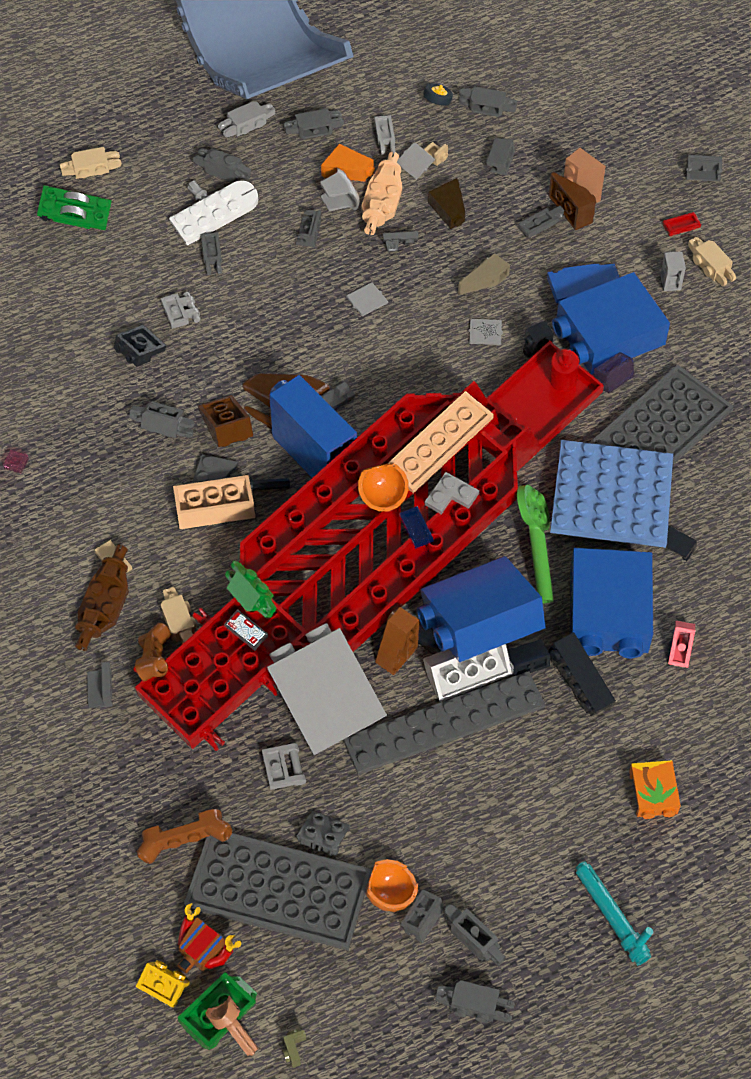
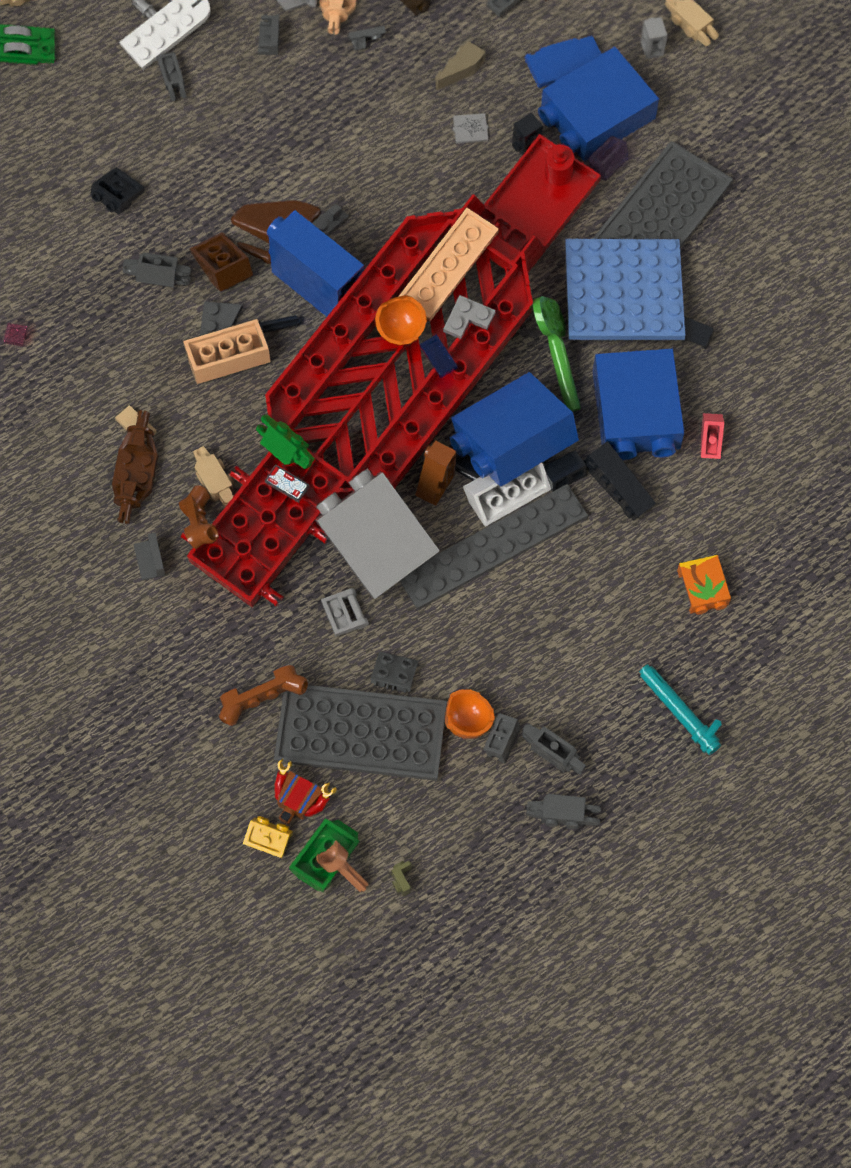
camera: 10 degrees left, 10 degrees up
(175, 312) = (146, 147): light grey plate -> none
(367, 299) = (343, 107): light grey piece -> none

